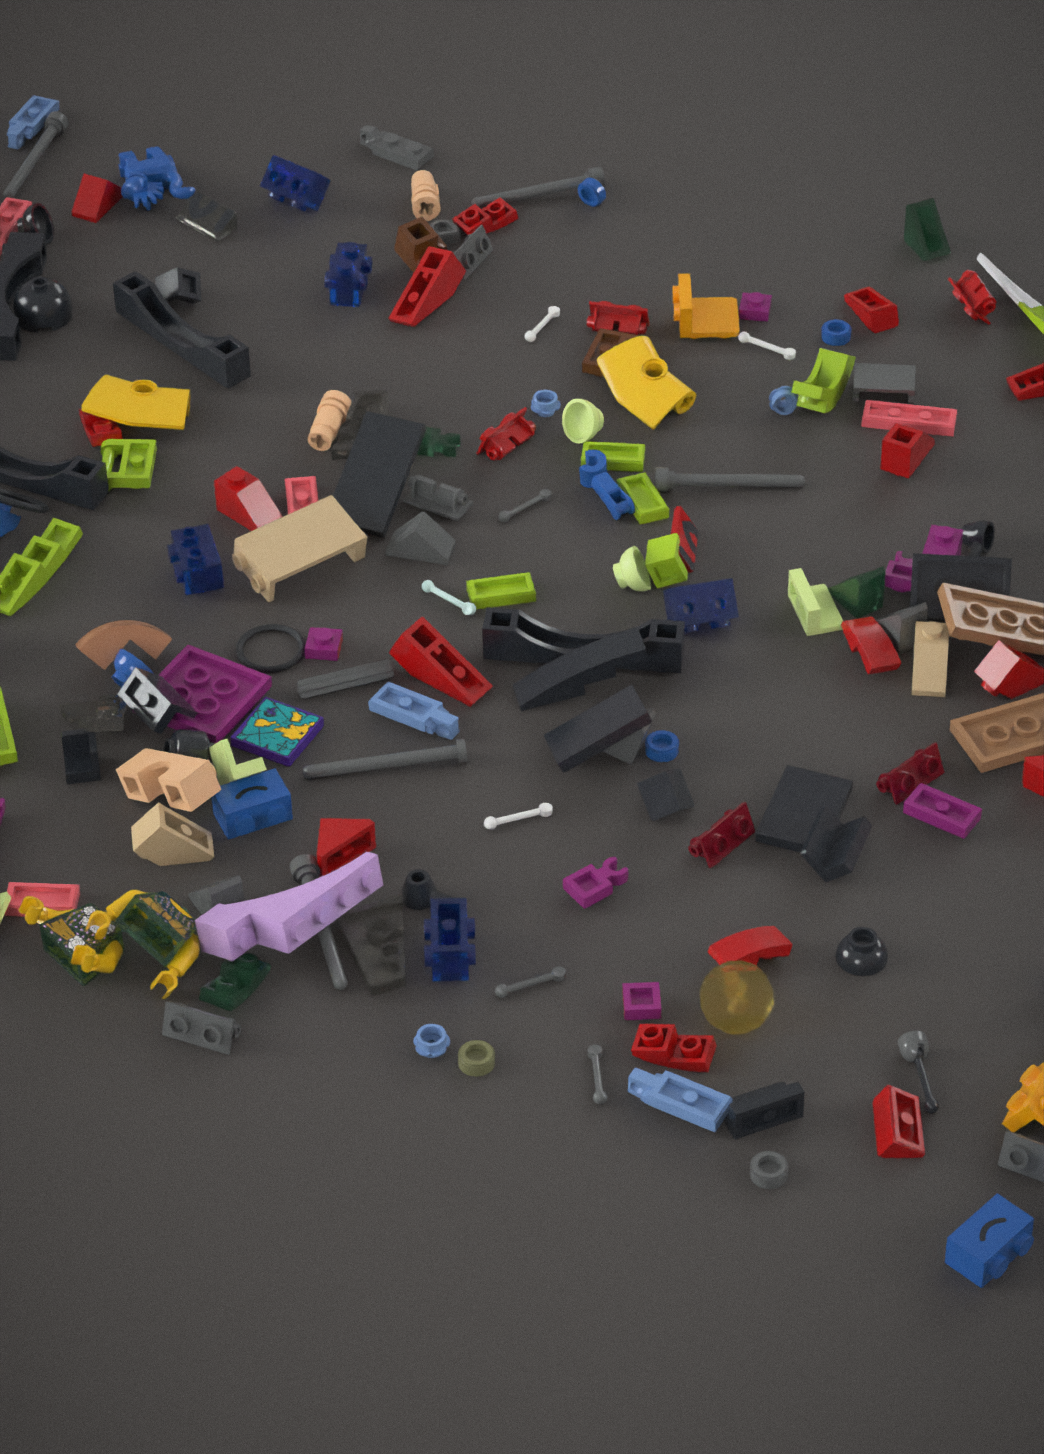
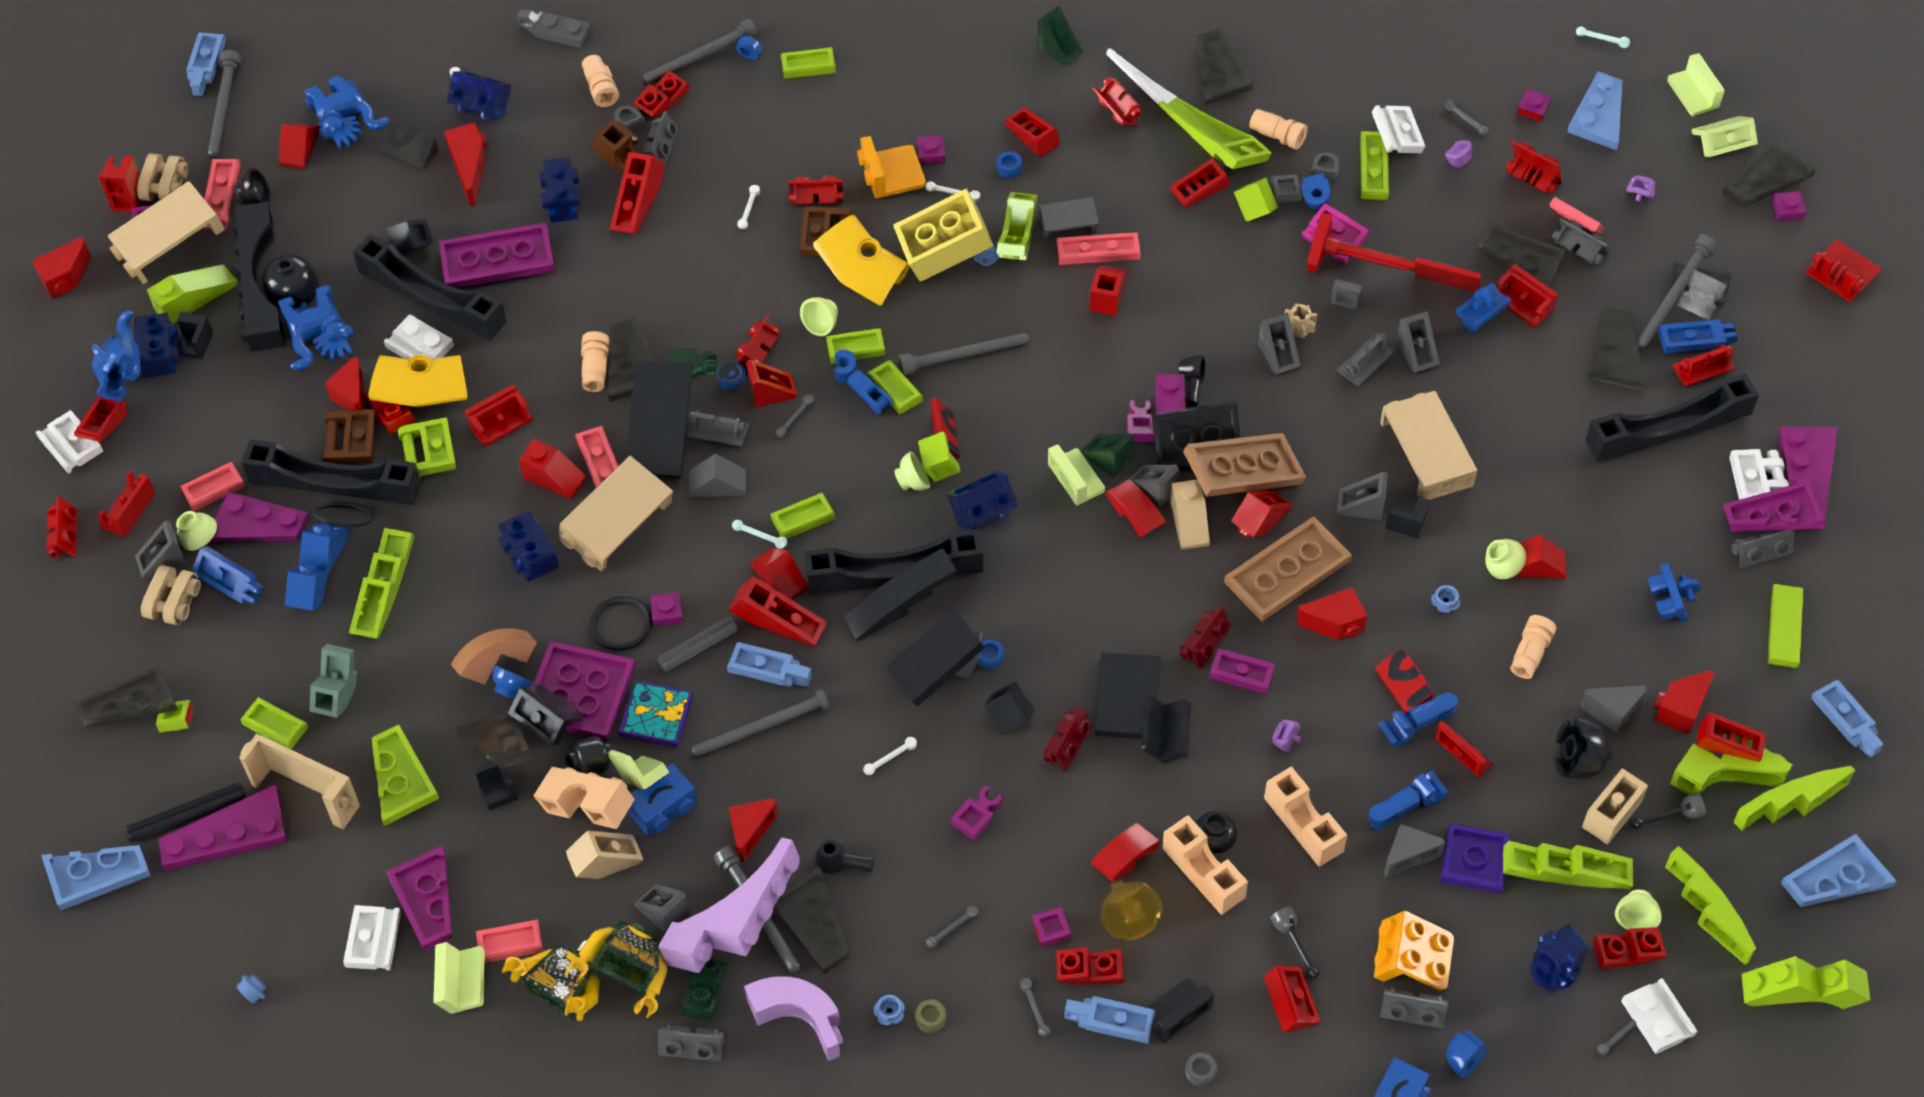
camera: 15 degrees left, 15 degrees up
(55, 344) = (317, 324): none -> blue animal
(58, 443) = (358, 436): none -> reddish brown plate
(64, 399) = (347, 386): none -> red slope
(155, 369) = (418, 338): none -> white plate
(210, 448) = (498, 415): none -> red hinge
(263, 318) = (496, 256): none -> magenta plate
(265, 234) = (468, 155): none -> red slope
(331, 1008) = (797, 998): none -> lavender arch
(449, 936) = (873, 898): clear blue brick -> none
(460, 631) = (780, 572): none -> red slope
(469, 459) = (731, 375): none -> tile
(506, 470) = (769, 384): none -> red slope
(545, 403) = (779, 294): medium blue plate -> none
(650, 216) = (808, 63): none -> lime tile
(739, 370) = (943, 235): none -> light yellow brick
(845, 991) = (1216, 881): none -> light nougat arch
(975, 878) = (1286, 734): none -> medium lavender piece
(976, 968) = (1316, 833): none -> light nougat arch

